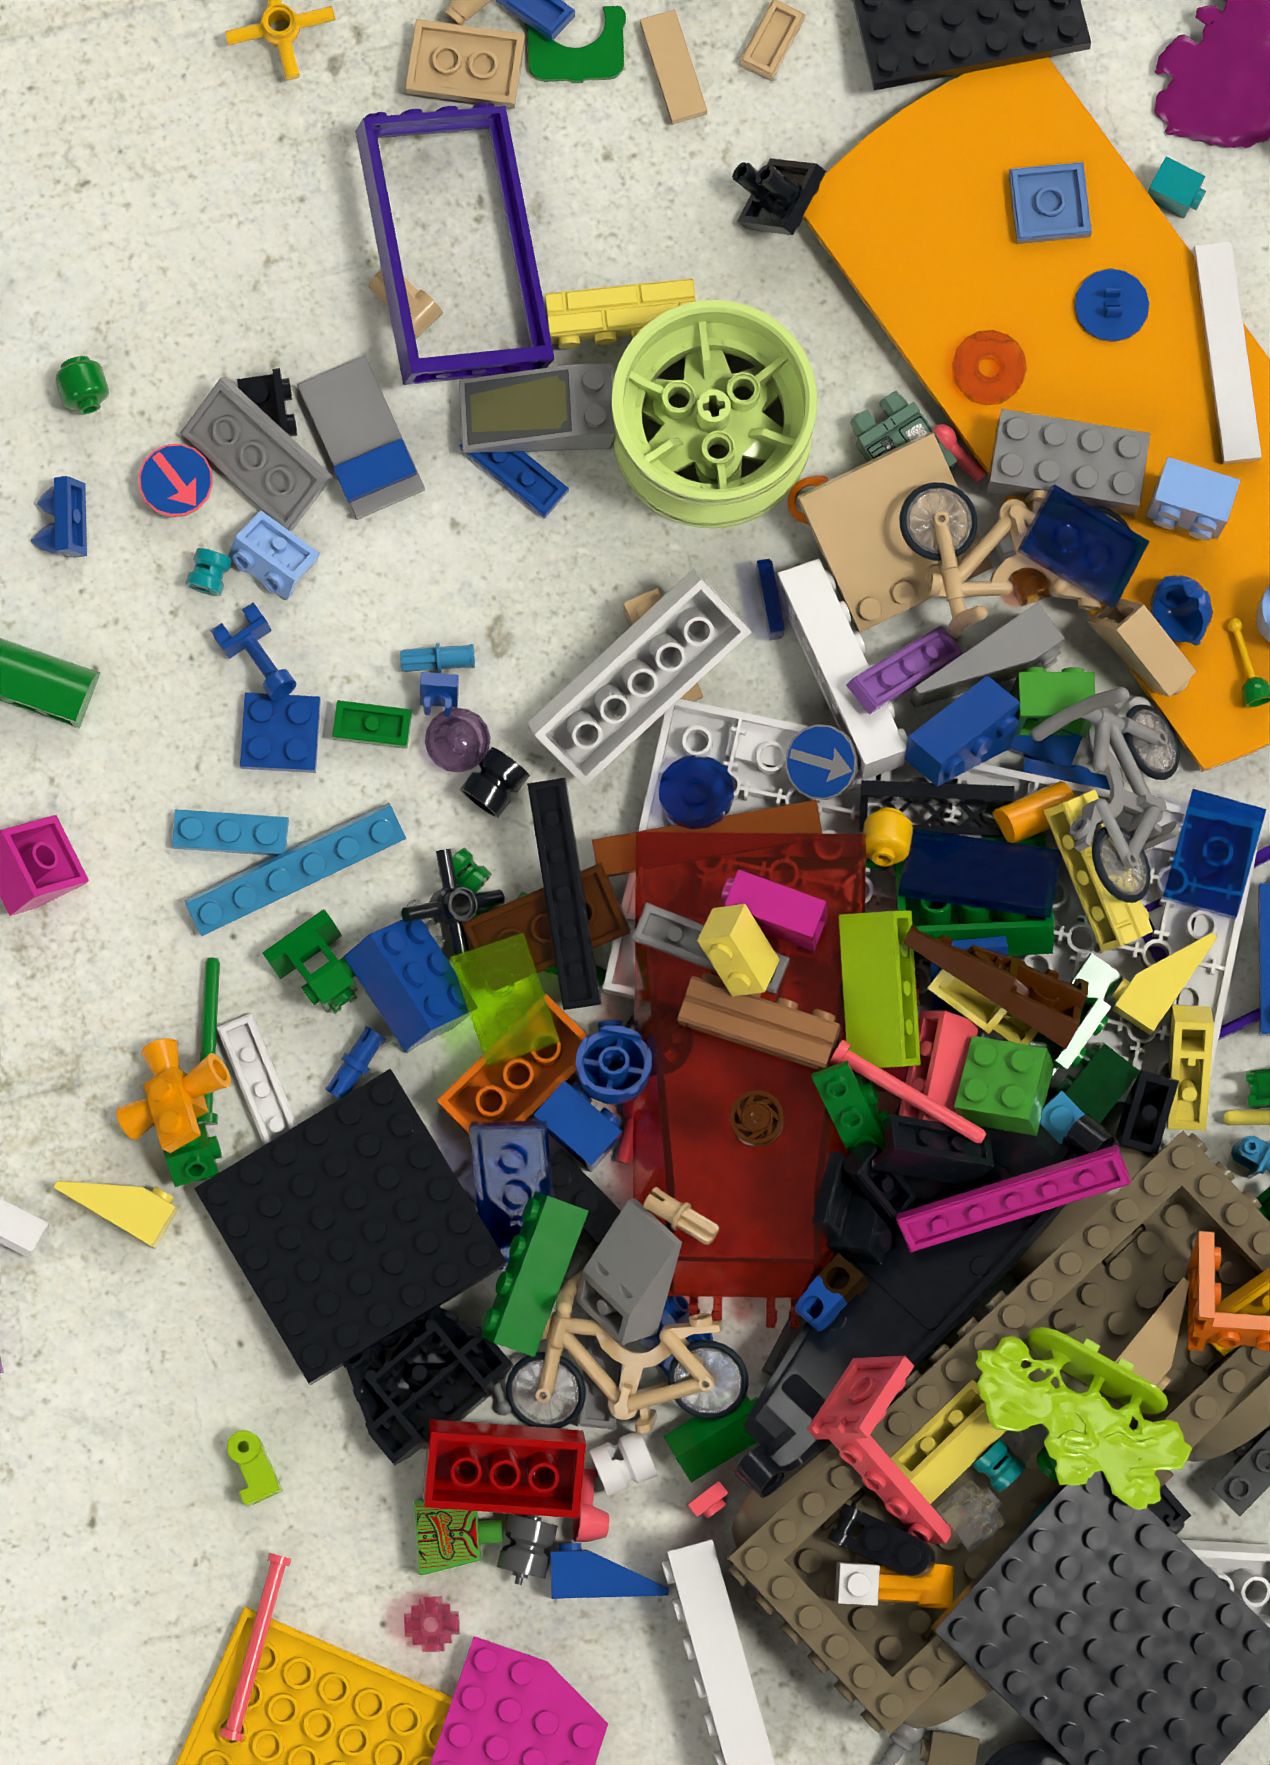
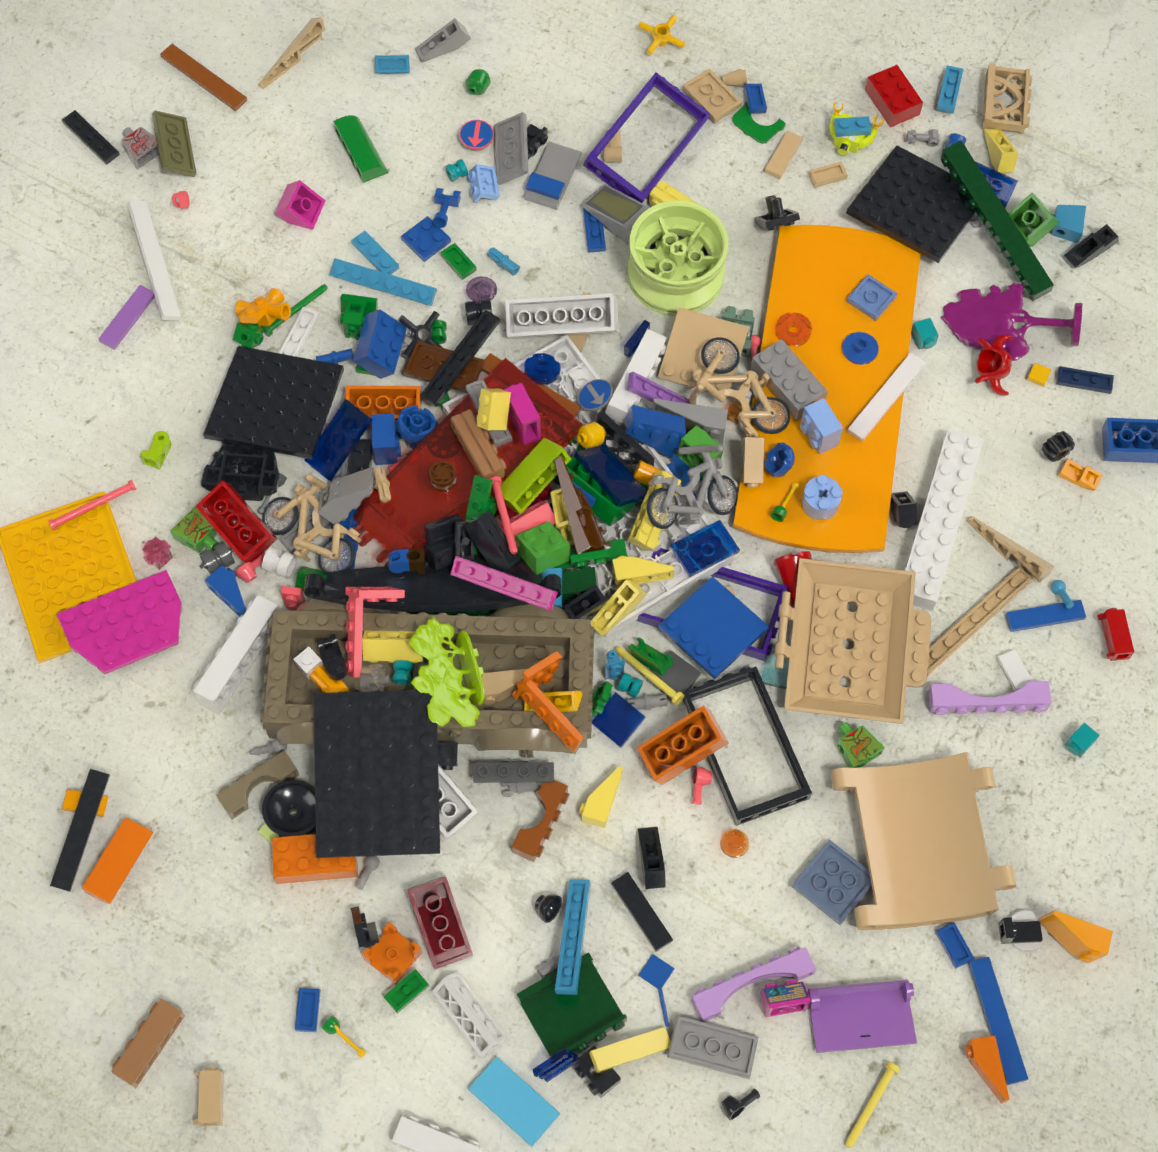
camera: 45 degrees right, 15 degrees down
(69, 531) = (429, 117): blue tile -> none
(128, 1207) = (211, 333): light yellow slope -> none
(439, 690) = (491, 269): blue tile -> none
(505, 999) = (403, 374): clear neon green tile -> none
(533, 1273) = (317, 463): green brick -> none
(1083, 546) = (764, 406): clear blue tile -> none

